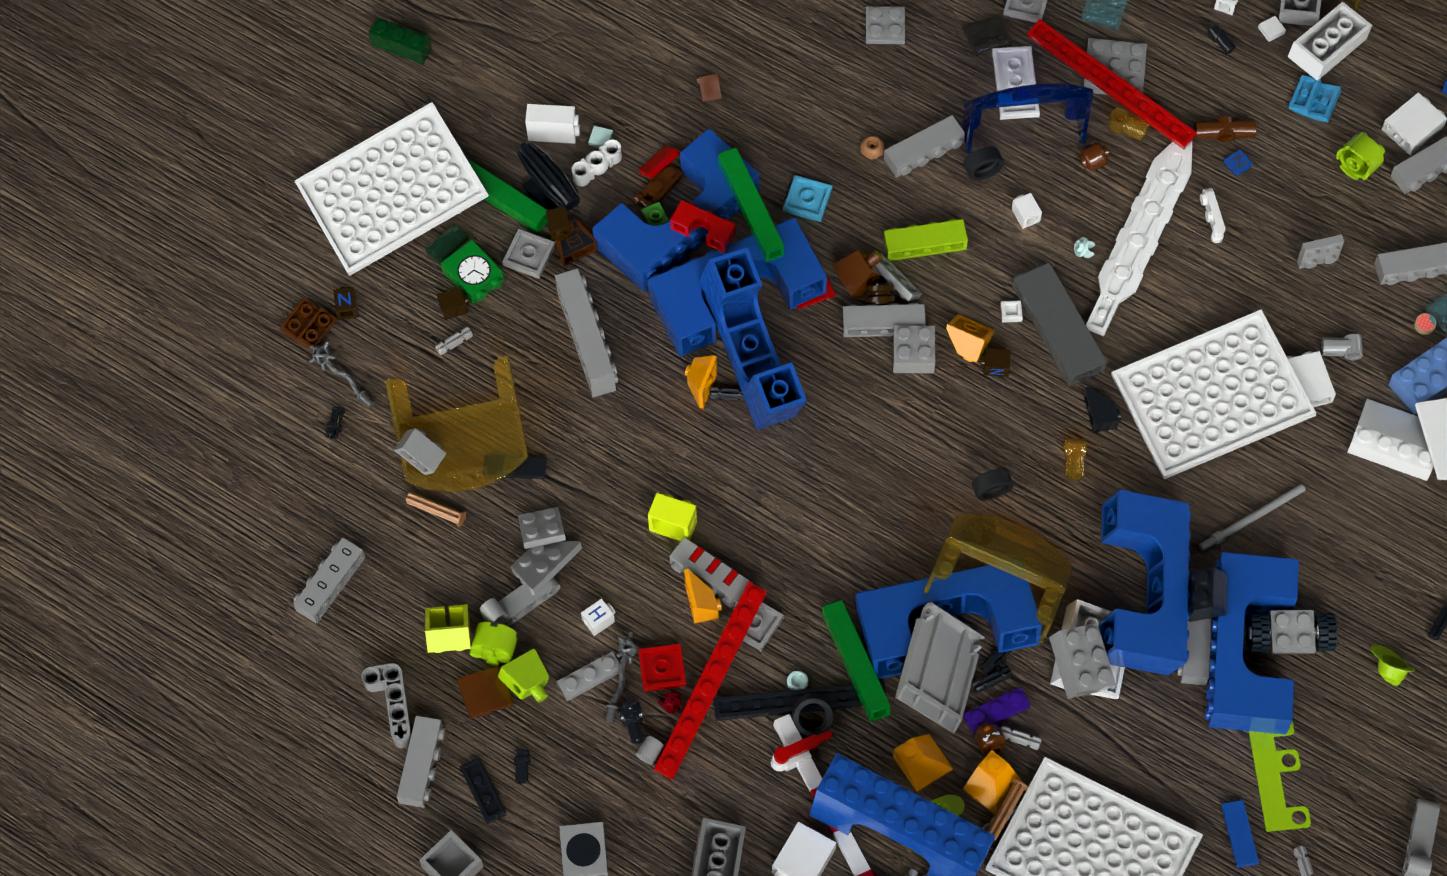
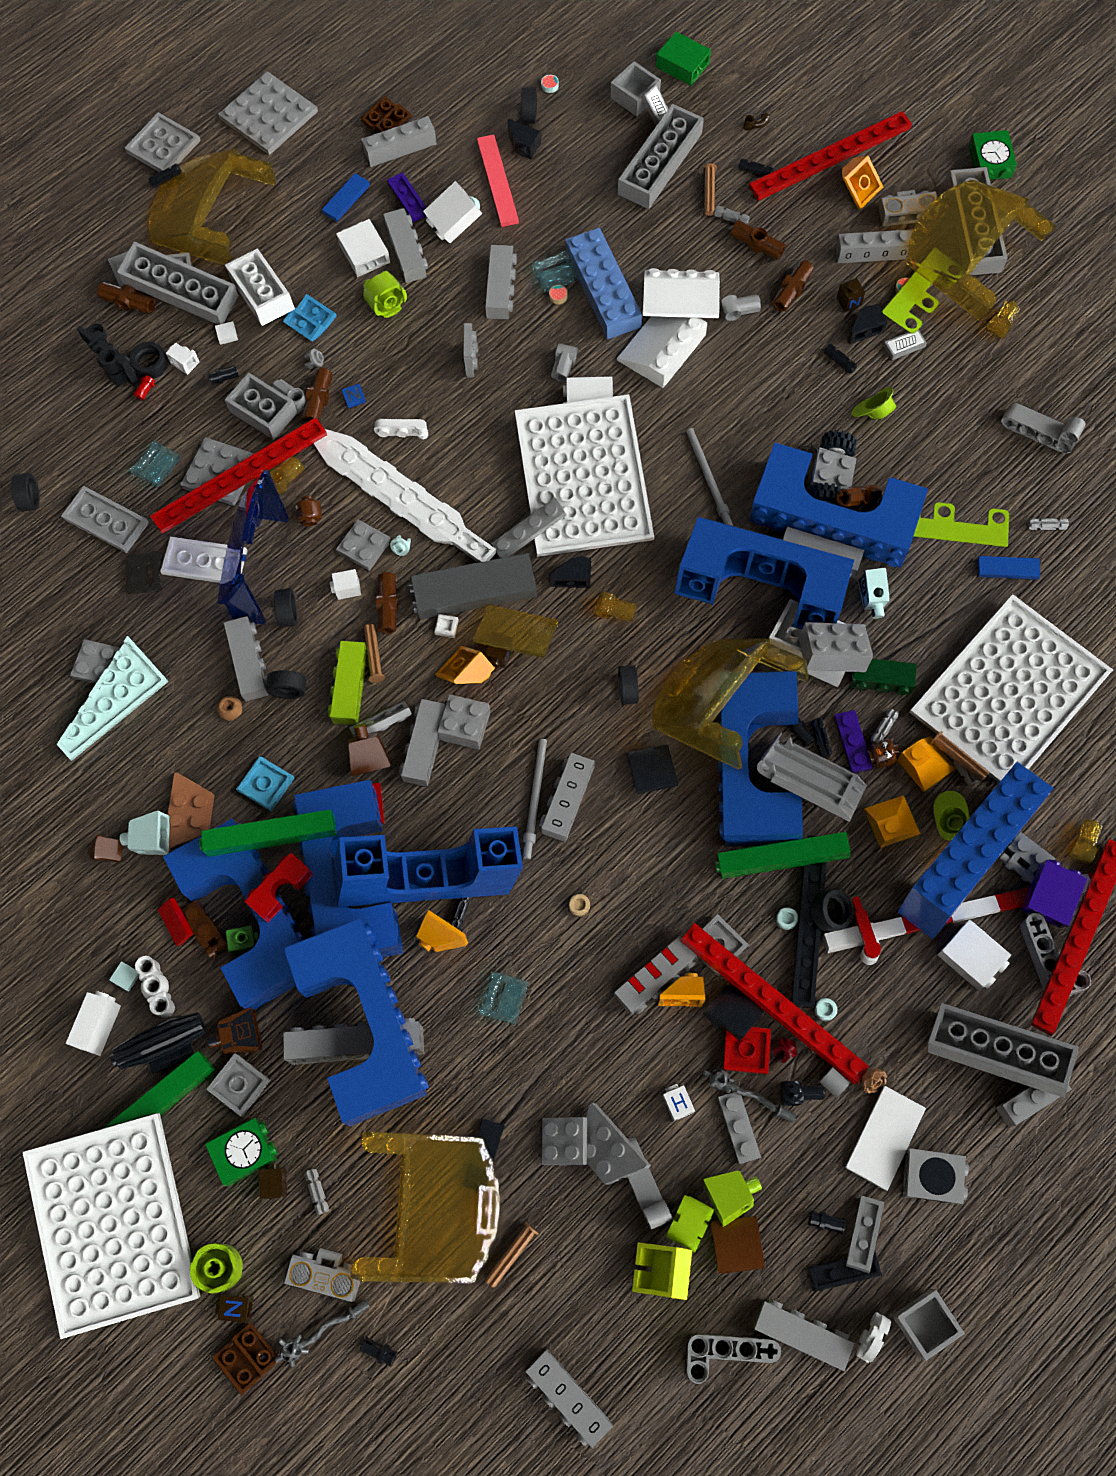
camera: 75 degrees left, 5 degrees up
(373, 278) = (206, 1259): none -> lime brick
(383, 361) = (320, 1278): none -> light grey piece
(420, 451) = (447, 1258): light grey brick -> none
(429, 815) = (871, 1340): none -> white plate
(447, 244) = (197, 1174): clear green tile -> none
(518, 798) = (865, 1234): none -> light grey plate
(558, 224) = (220, 1042): dark brown brick -> none
(566, 356) = (391, 1071): none -> blue arch
(612, 804) = (885, 1138): none -> white tile
(657, 455) = (511, 998): none -> clear light blue plate
(659, 784) = (873, 1080): none -> medium nougat plate
(672, 517) = (590, 998): neon yellow piece -> none
(692, 645) = (733, 1011): none -> black slope
(717, 732) = (825, 1009): none -> light aqua tile
(731, 115) = (148, 834): none -> light aqua torso
(762, 143) = (188, 810): none -> nougat wing
(762, 494) = (579, 905): none -> tan tile
(816, 435) = (529, 837): none -> light grey bar
(856, 49) = (117, 693): none -> light aqua wing
(864, 458) = (568, 797): none -> light grey brick
(880, 293) = (397, 737): dark brown wheel -> none
(905, 185) = (286, 684): none -> black tyre
(913, 528) = (652, 769): none -> black slope
(962, 253) = (373, 654): none -> medium nougat axle
(1018, 251) = (387, 603): none -> reddish brown piece
(1020, 371) = (516, 631): none -> clear yellow piece
(1075, 215) = (363, 545): none -> light grey plate
(1075, 727) = (885, 677): none -> dark green brick
(1135, 356) = (529, 528): none -> light grey plate
(1172, 696) = (874, 591): none -> light aqua torso
(1194, 81) = (261, 406): none -> light grey brick
(1207, 594) = (793, 524): black slope -> none
(1217, 103) = (293, 393): none -> light grey piece
(1267, 115) = (315, 359): none -> light grey plate
(1267, 656) = (858, 495): none -> reddish brown piece

